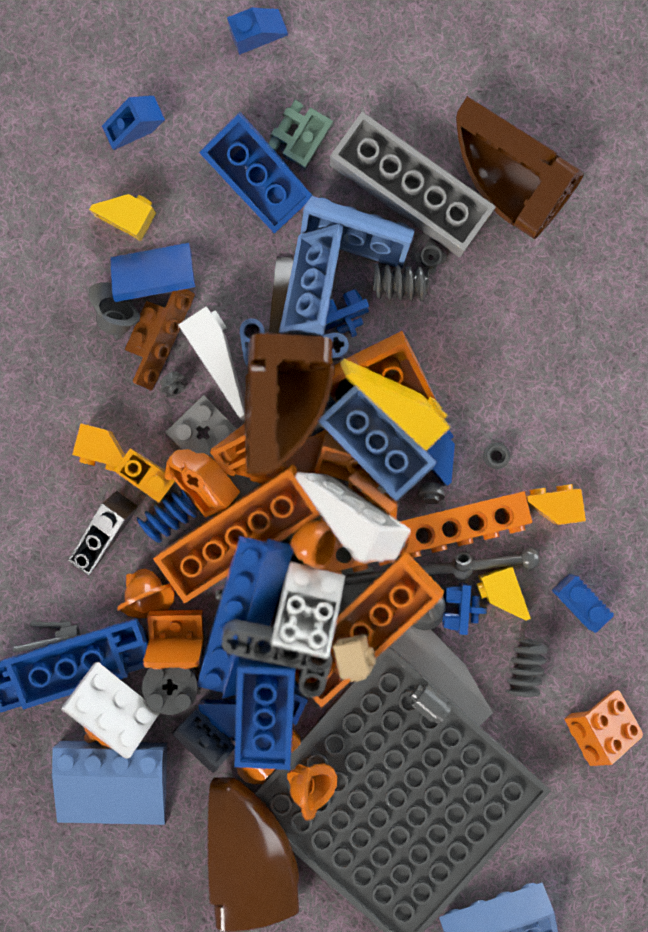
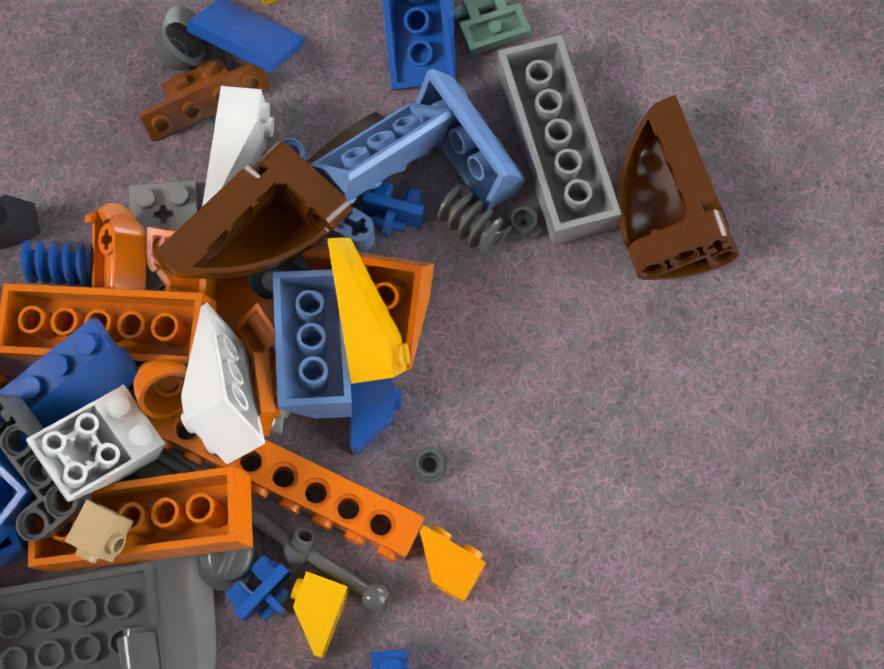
camera: 40 degrees right, 15 degrees down
(97, 445) = (57, 149): light orange slope -> none
(144, 474) = (70, 204): light orange slope -> none
(173, 384) = (175, 148): dark grey plate -> none
(431, 493) = (331, 447): dark grey plate -> none

